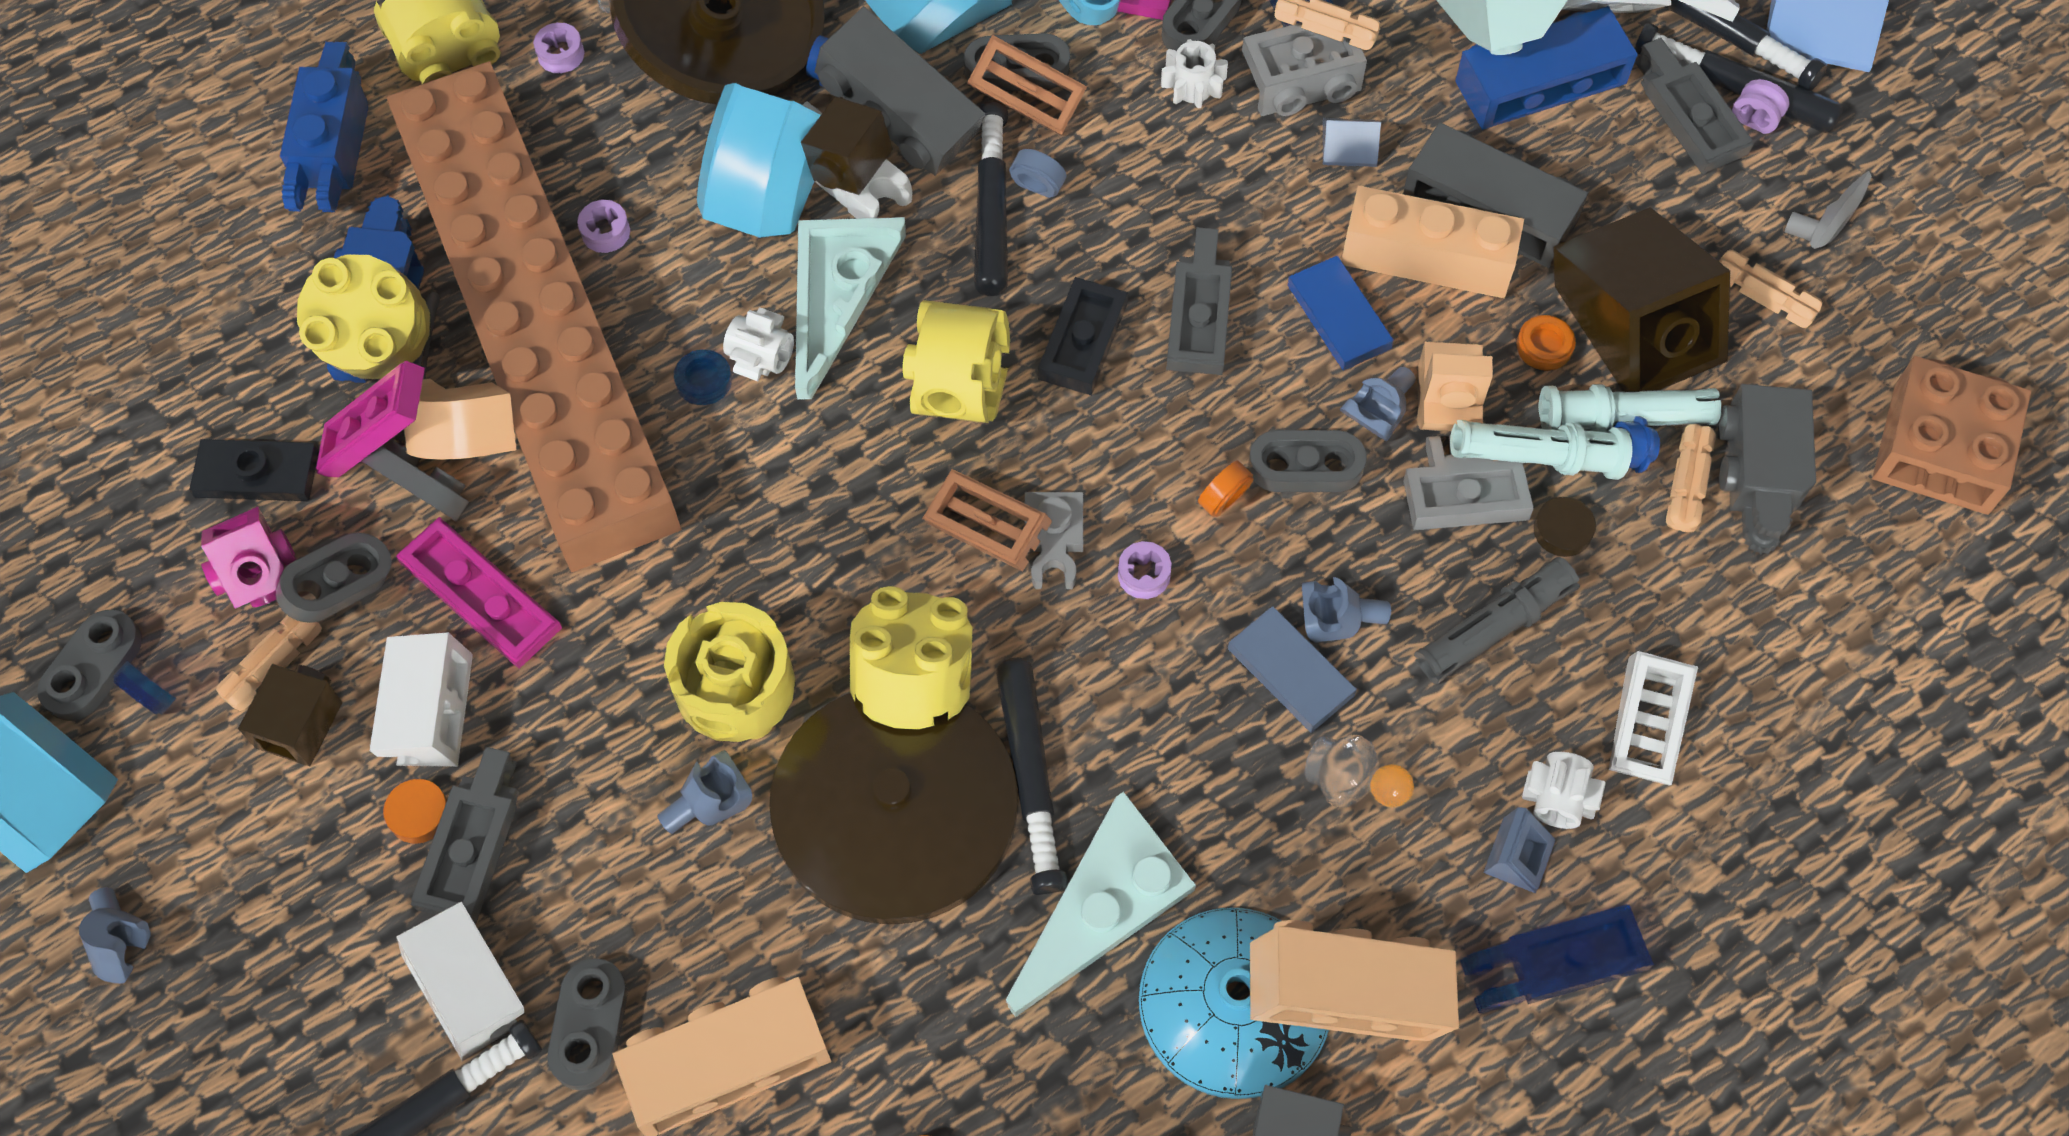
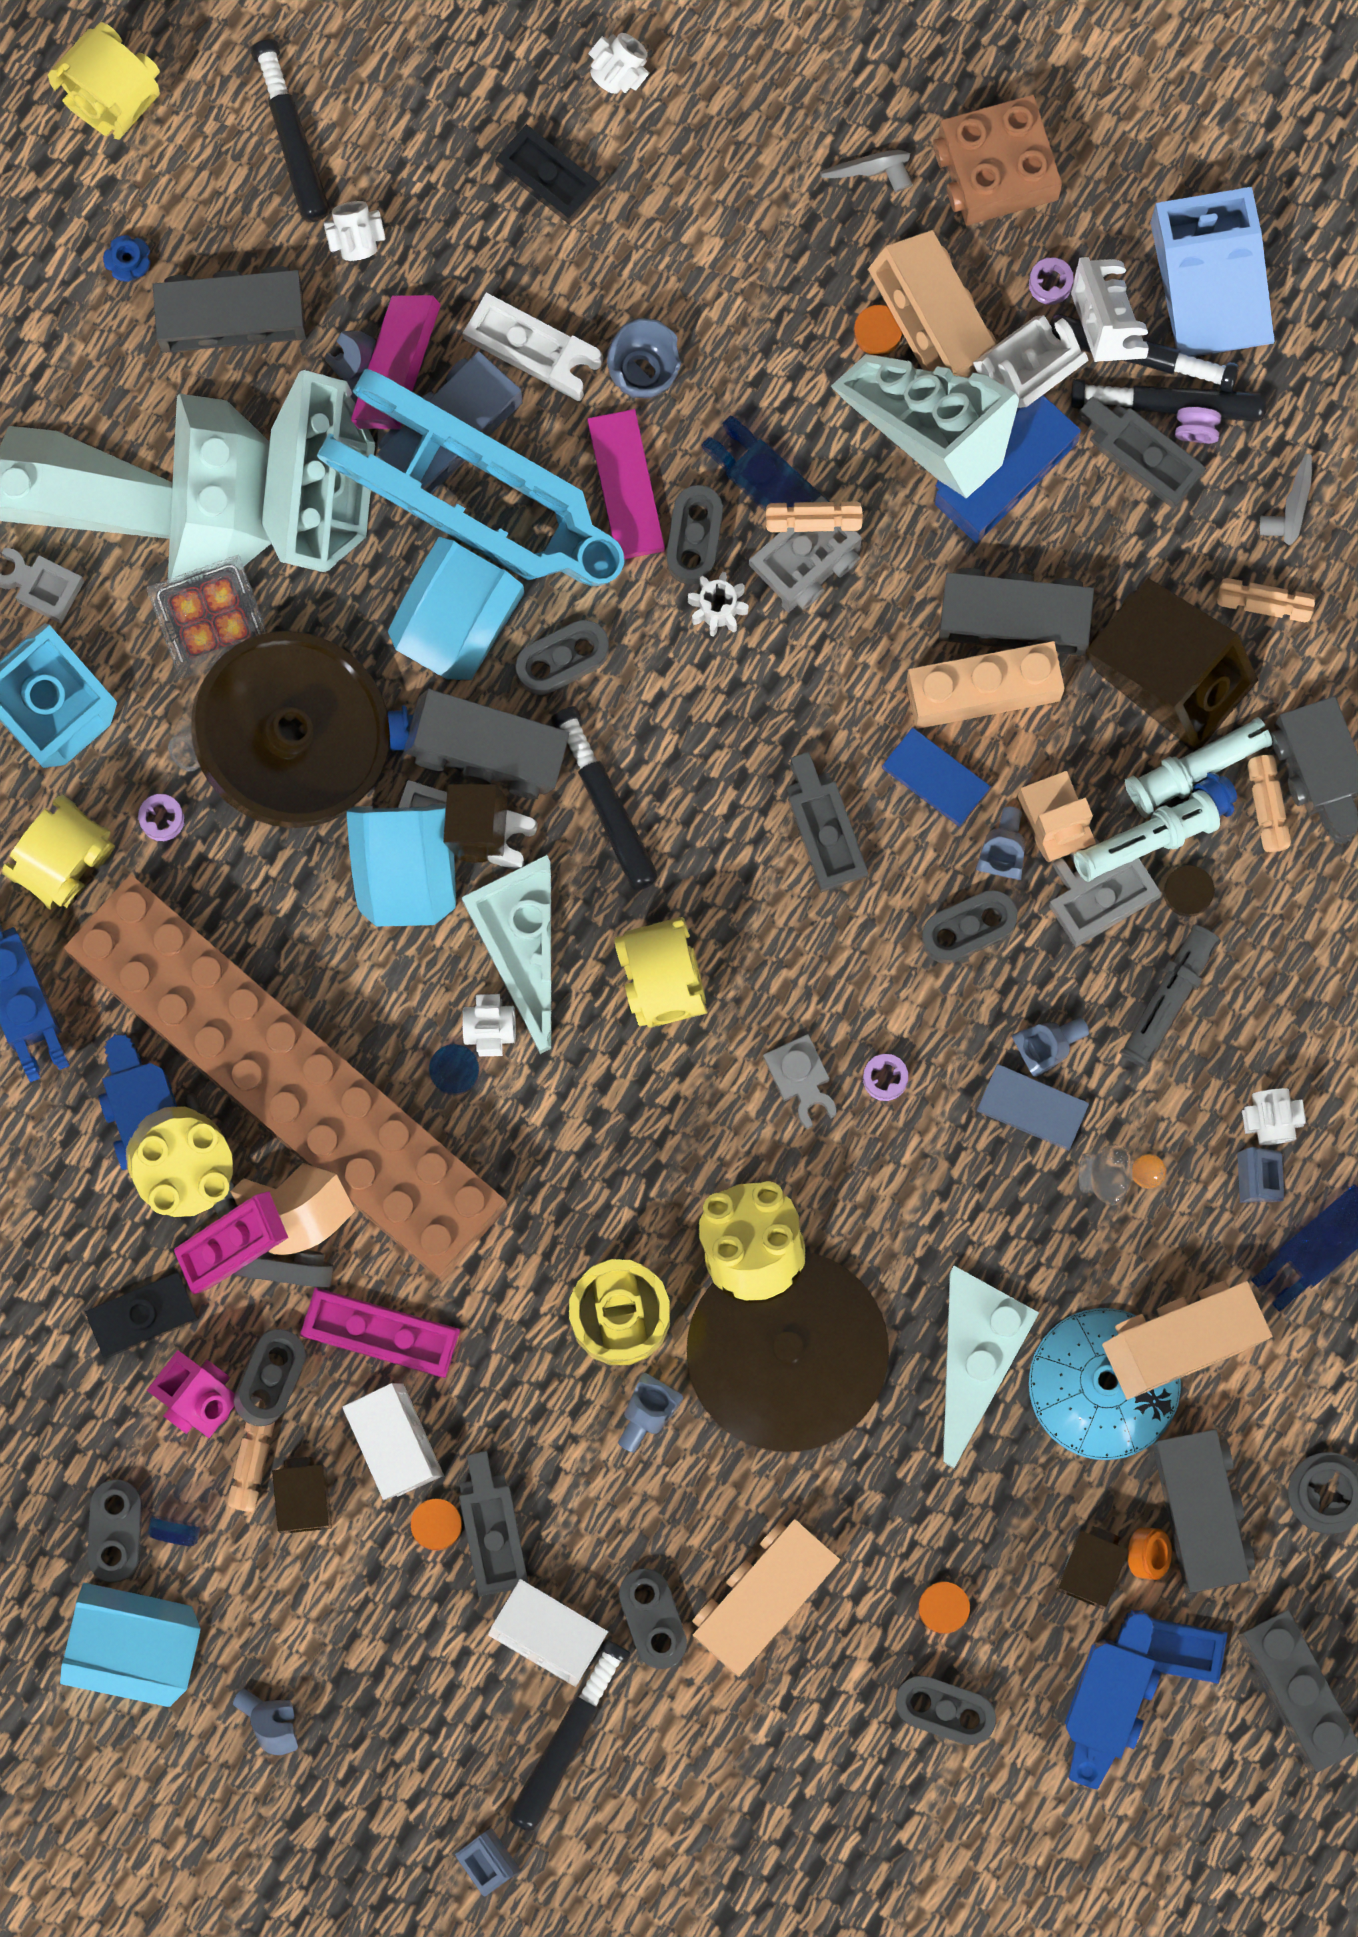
camera: 25 degrees left, 15 degrees up
(591, 234) = (283, 974): lavender bush -> none
(986, 64) = (583, 663): nougat tile -> none
(1024, 539) = (787, 1098): nougat tile -> none
(1030, 768) = (870, 1270): black piece -> none
(1037, 172) = (633, 761): sand blue tile -> none
(1082, 336) = (742, 895): black plate -> none
(1226, 488) = (918, 981): orange tile -> none
(1351, 142) = (874, 606): slope -> none
(1546, 342) = (1110, 730): orange tile -> none
(1665, 671) = (1293, 1007): white slope -> none

